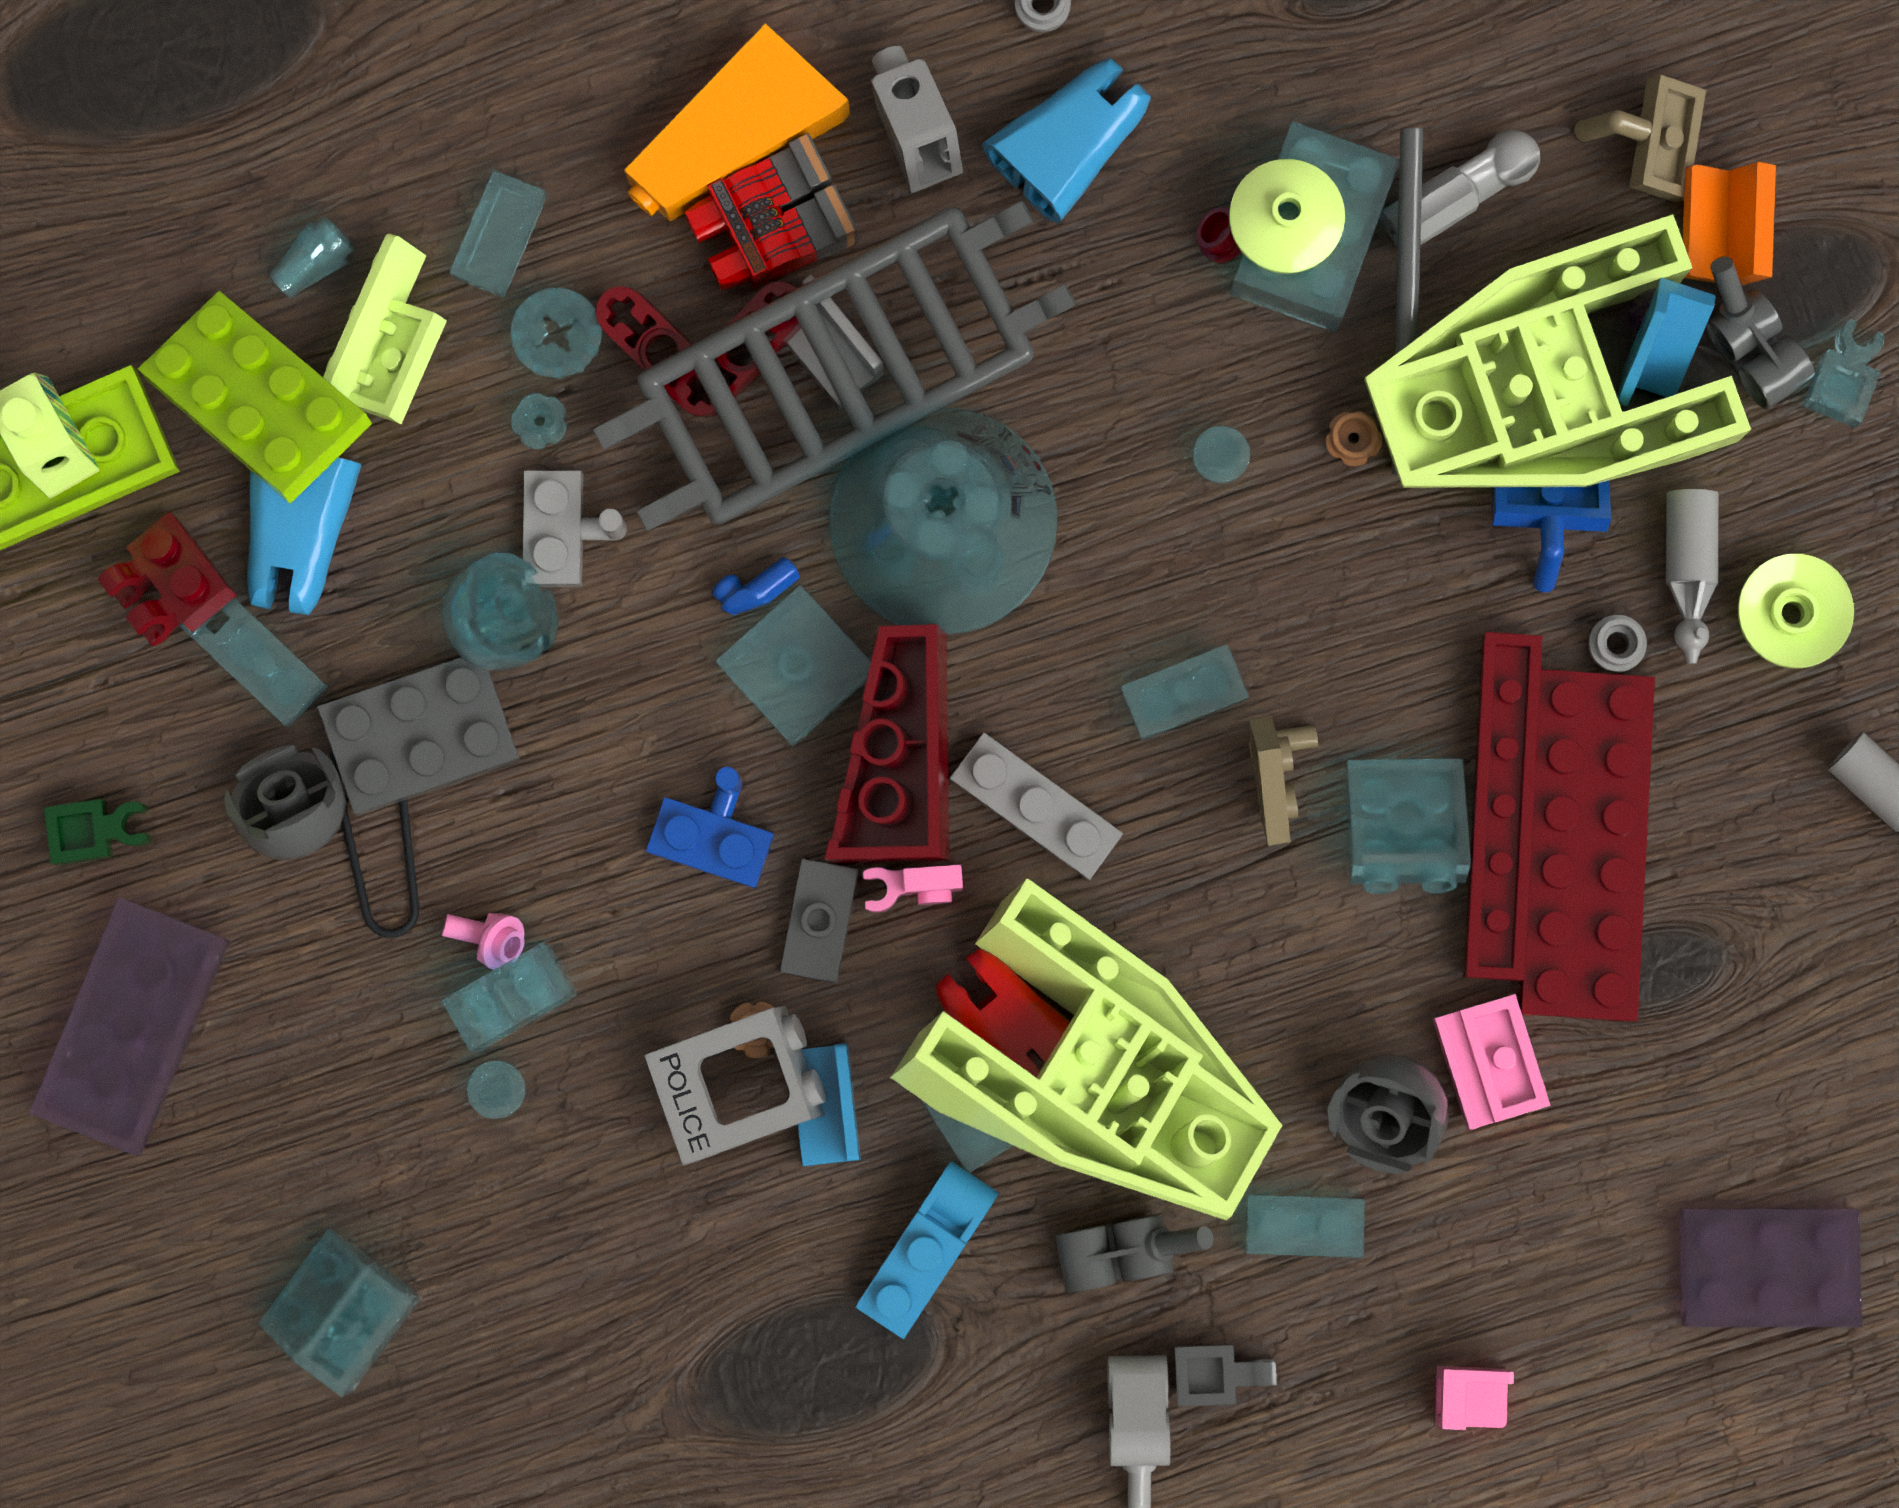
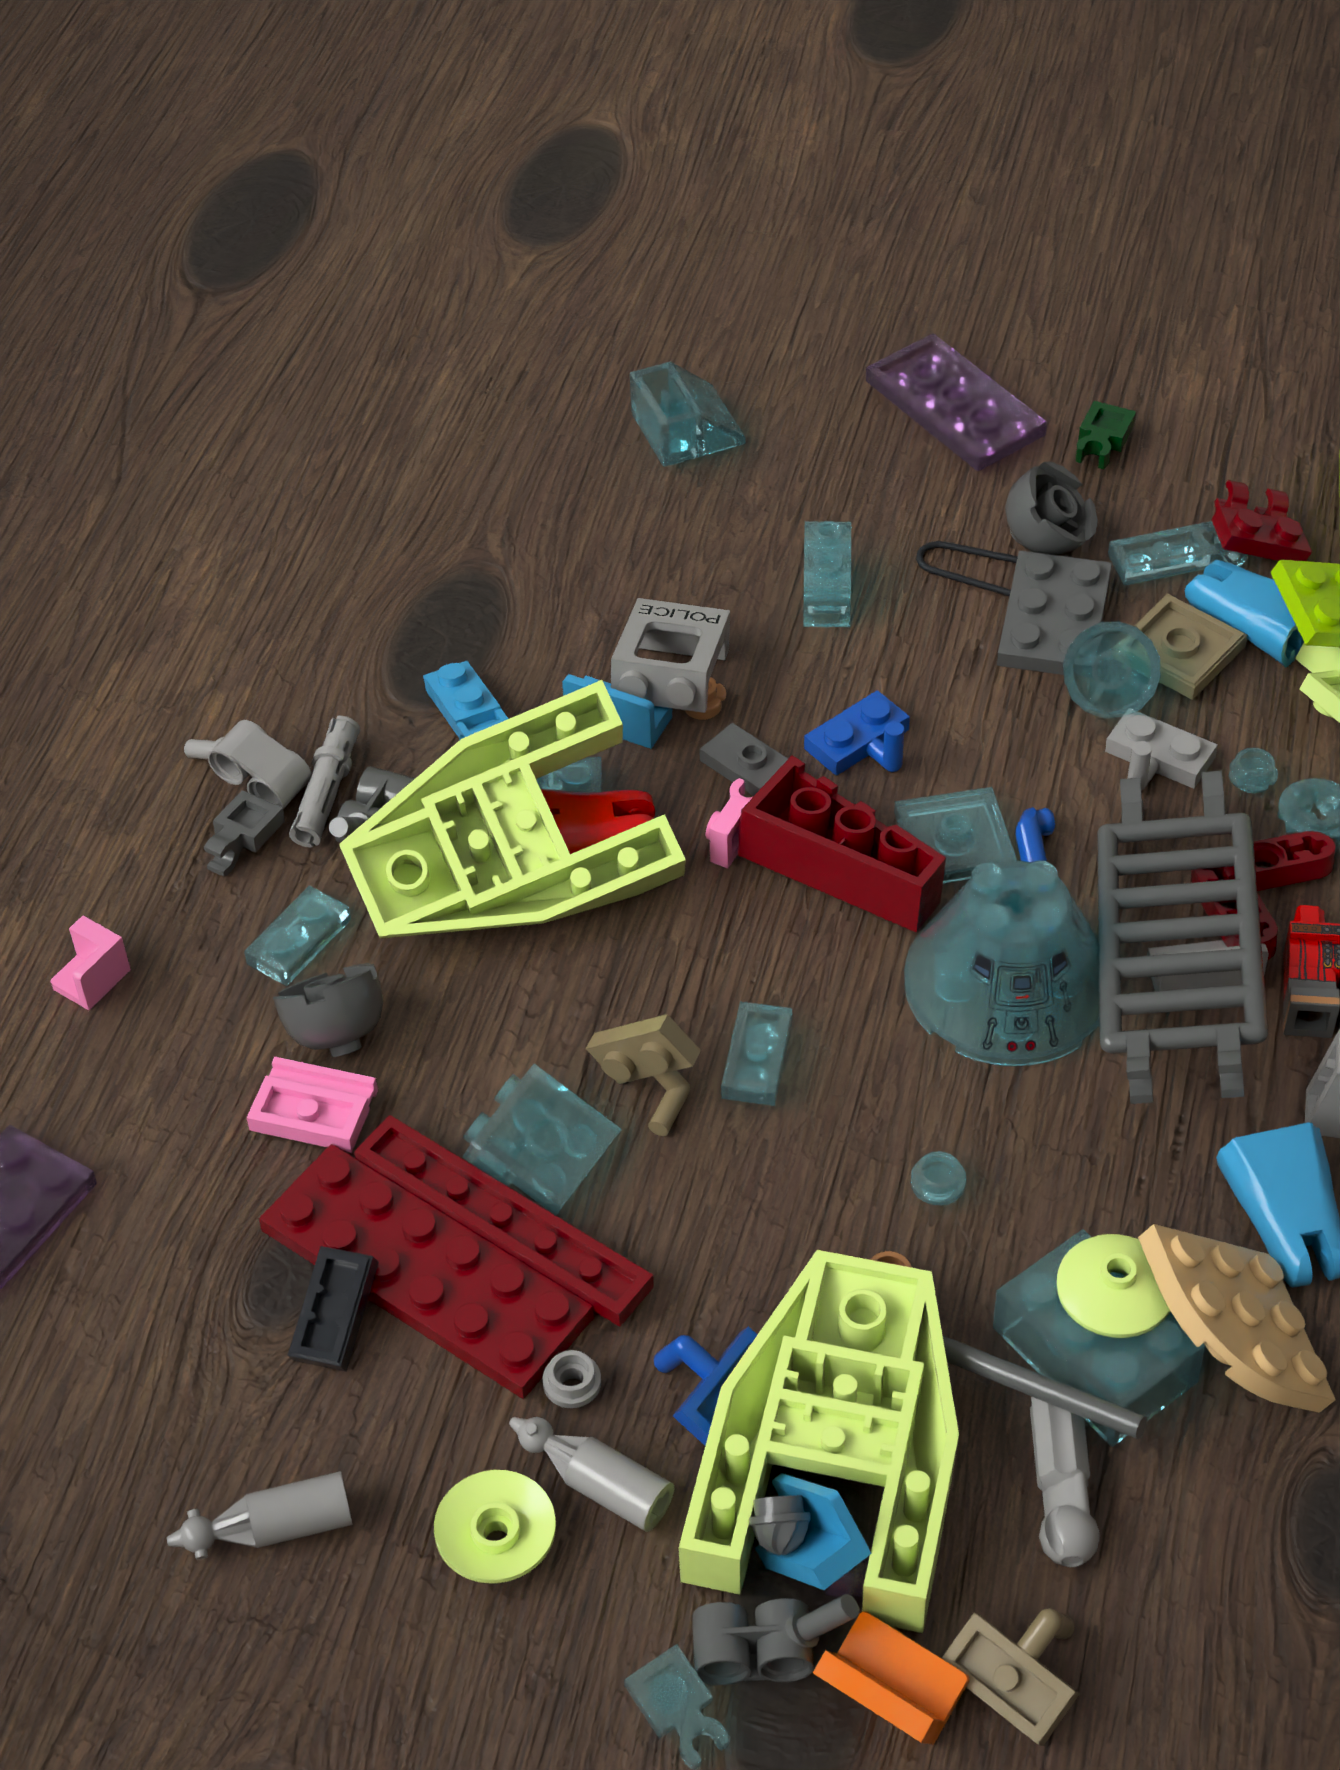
camera: 120 degrees right, 35 degrees down
(395, 577) = (1190, 644): none -> dark tan plate
(493, 937) = (874, 590): bright pink plate -> none
(496, 1089) = (770, 550): clear light blue plate -> none
(1036, 806) = (738, 927): light grey plate -> none
(1095, 1341) = (330, 765): none -> light grey pin
(1234, 115) = (1241, 1313): none -> tan plate
(1674, 366) = (780, 1523): none -> dark grey plate
(1686, 886) = (333, 1308): none -> black plate

